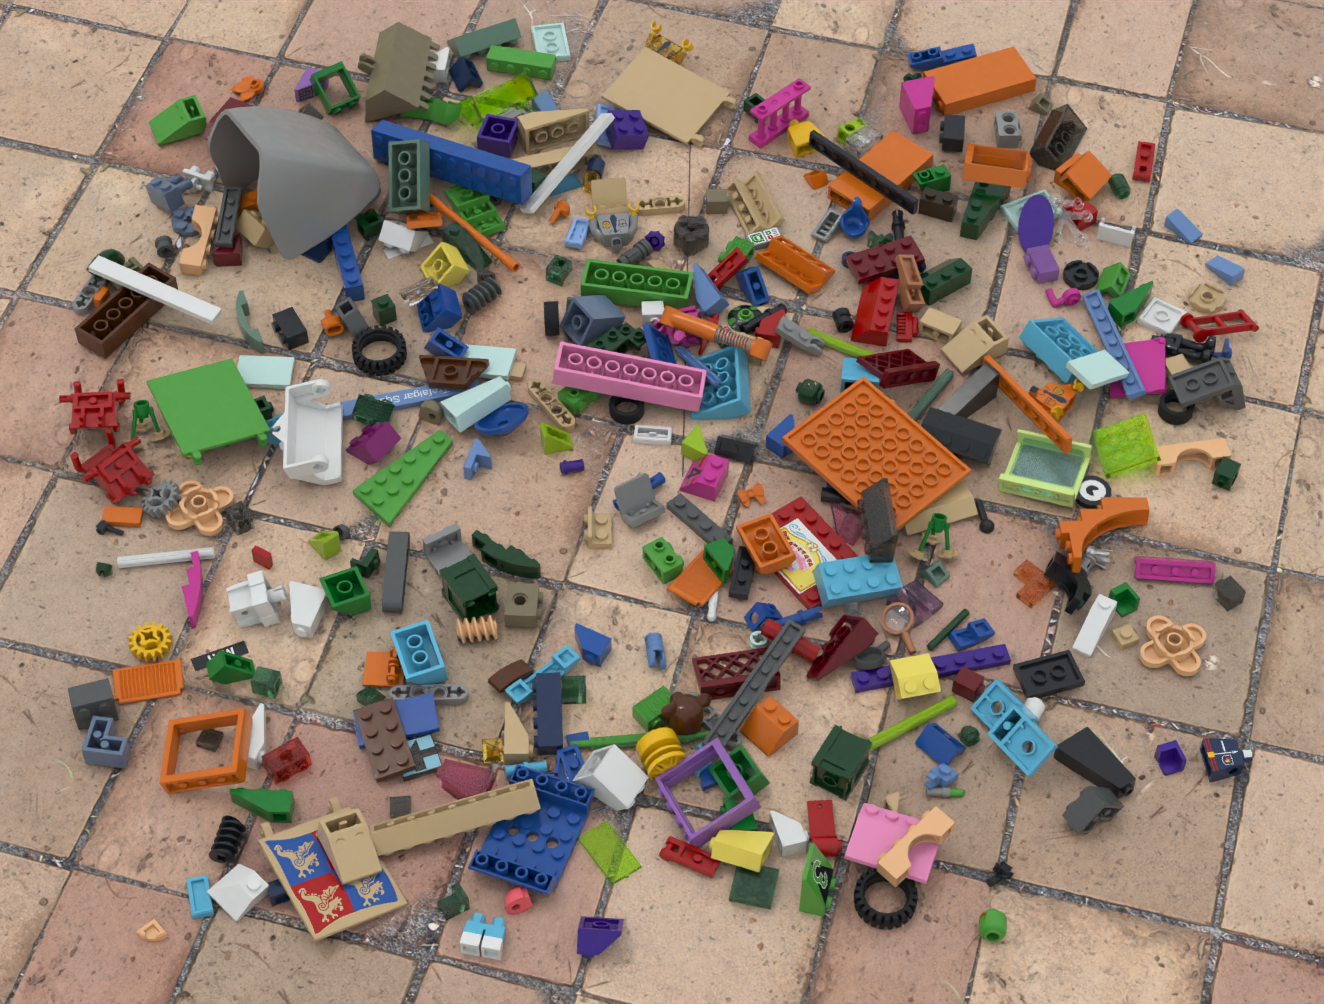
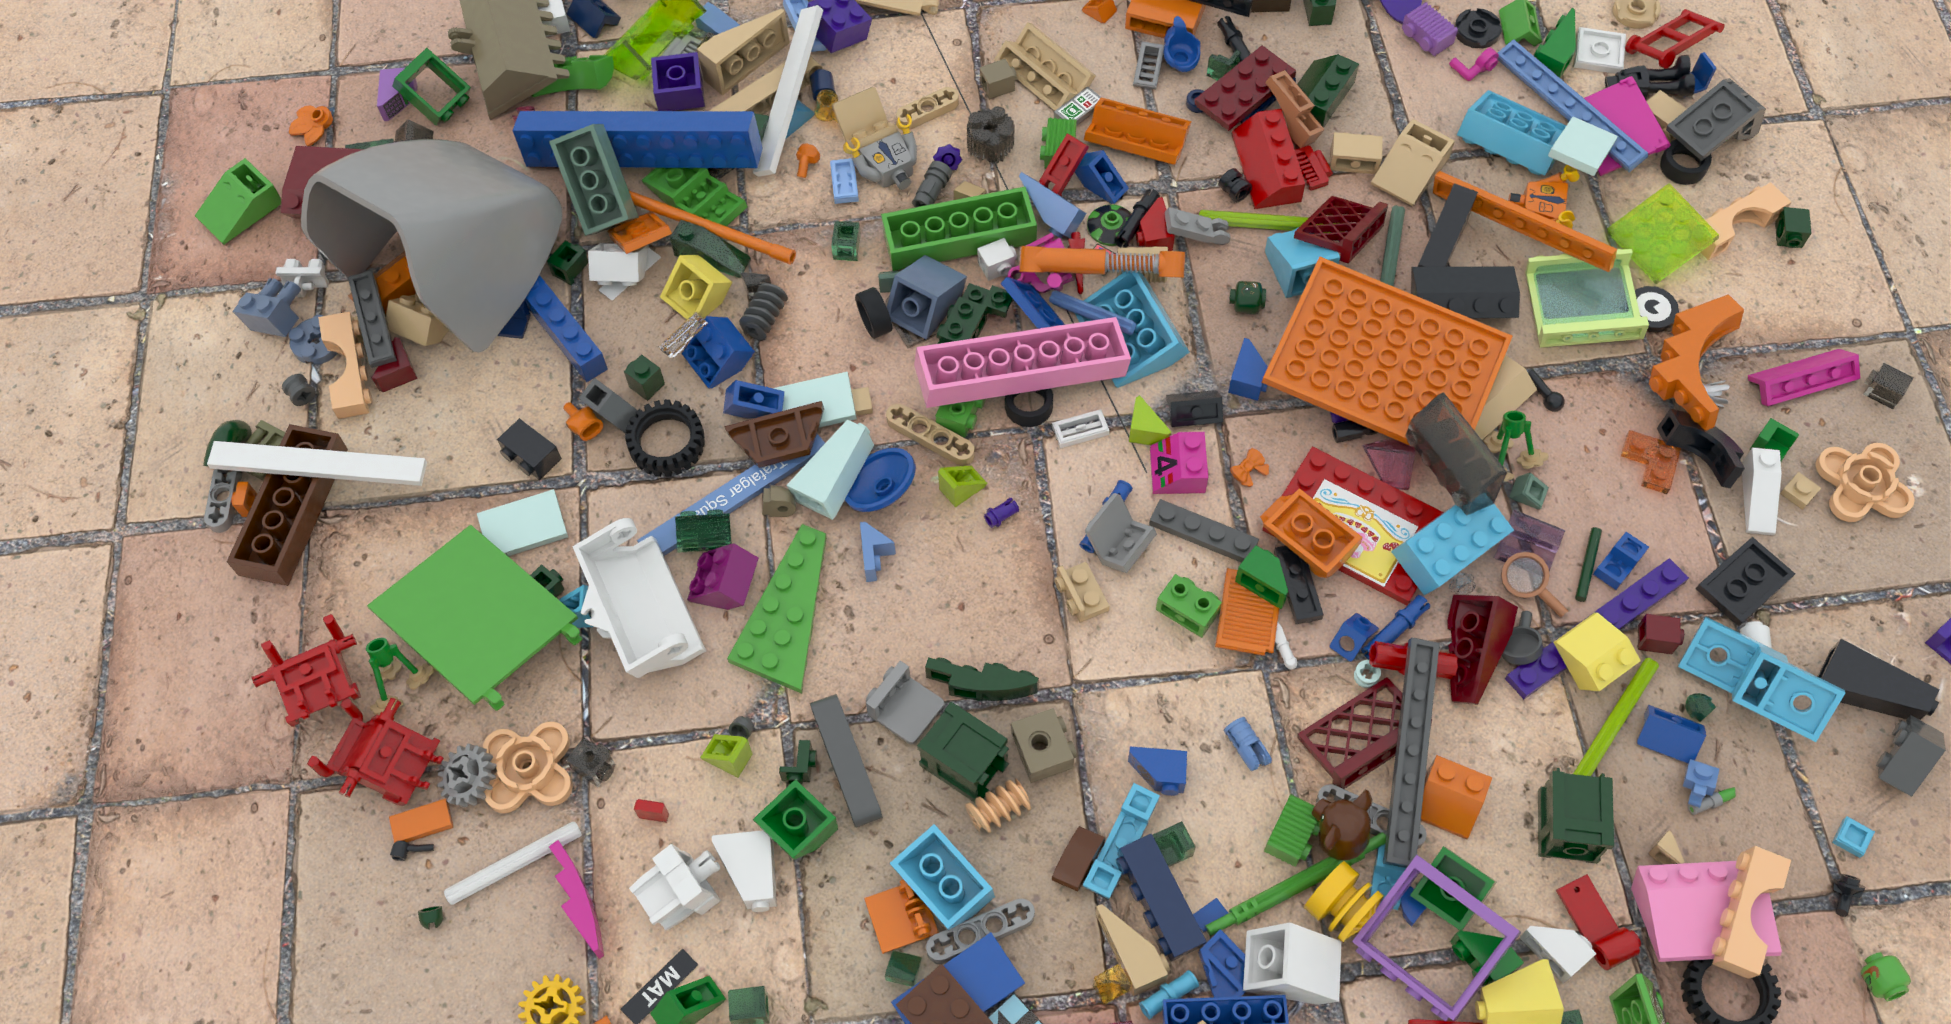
camera: 20 degrees left, 10 degrees up
(251, 336) = (484, 480): sand green slope -> none
(1027, 846) = (1853, 837): none -> medium azure tile

